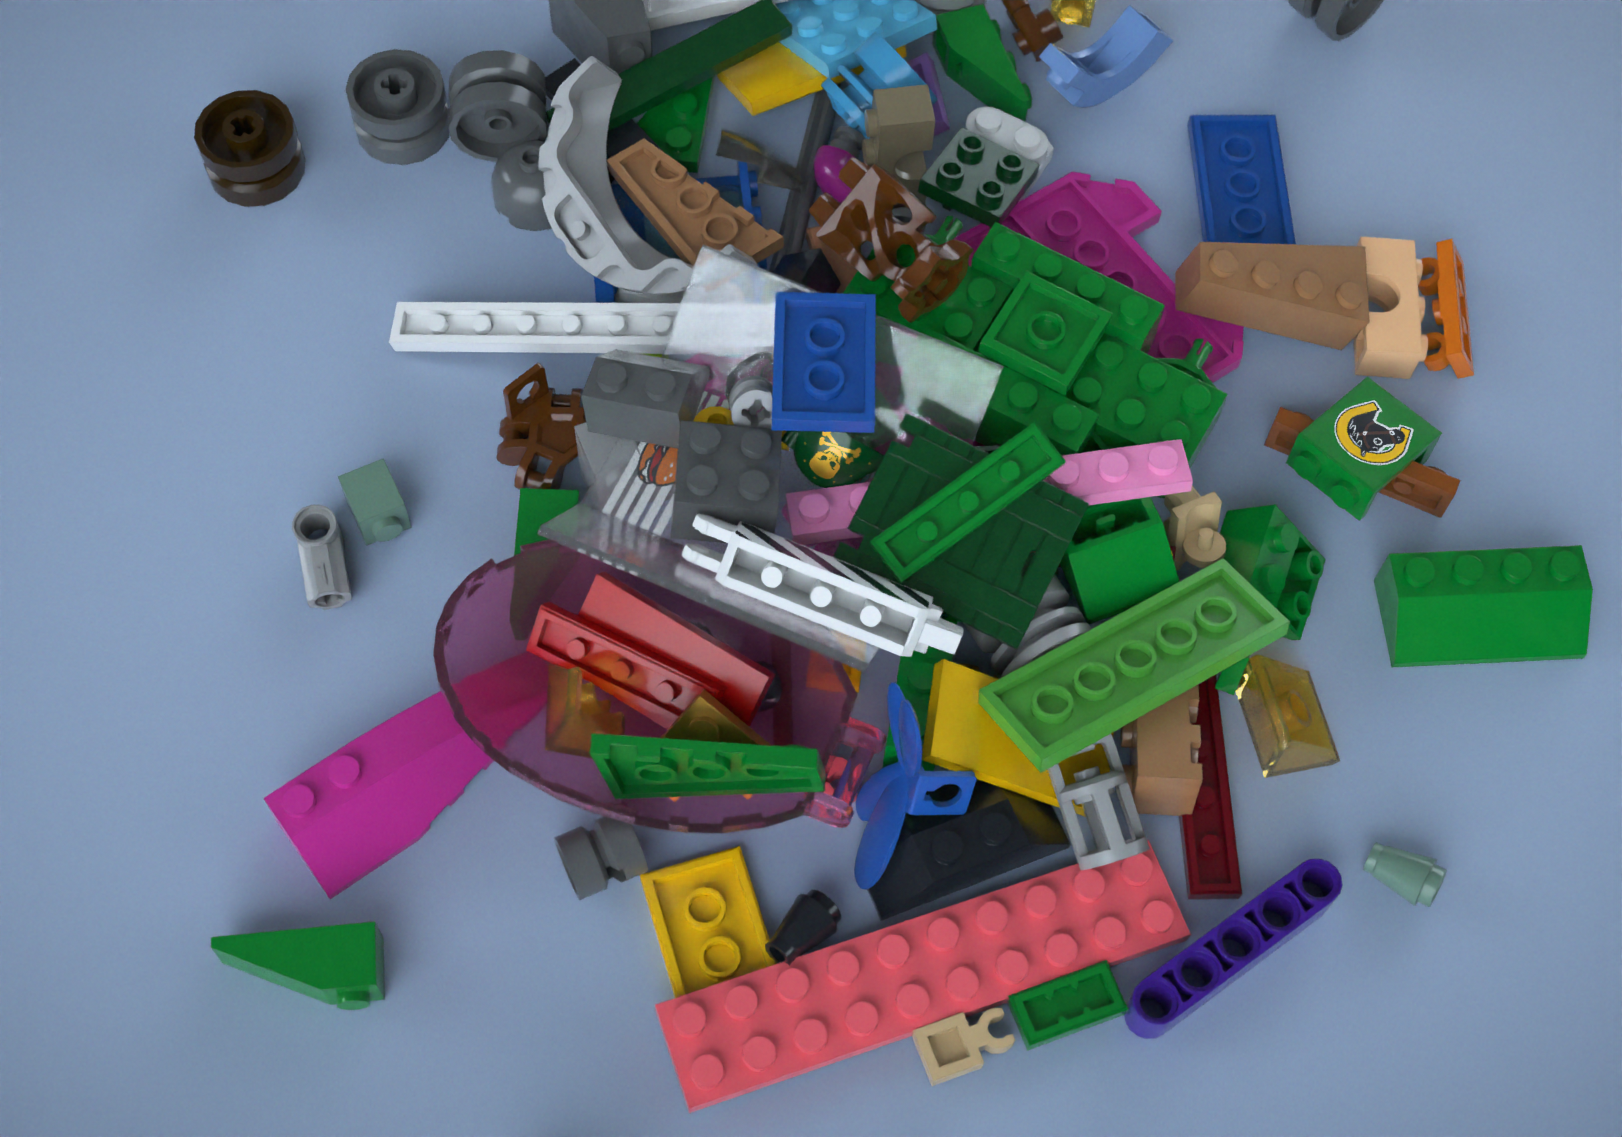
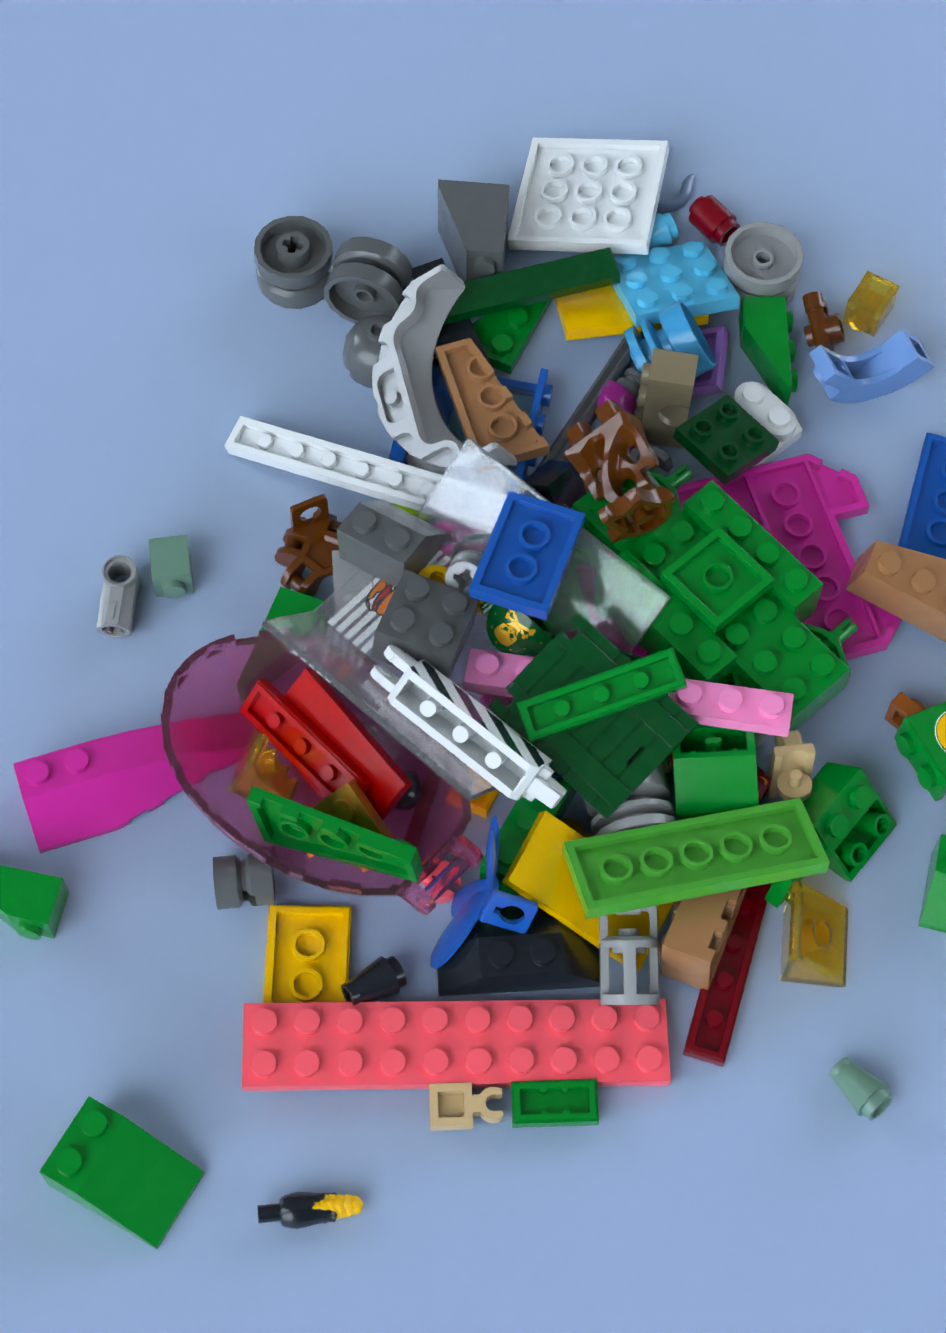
camera: 20 degrees right, 0 degrees up
(250, 148) = (171, 265): dark brown wheel -> none
(772, 168) = (567, 385): clear smoke brick -> none
(1246, 927) = (714, 1087): dark purple beam -> none

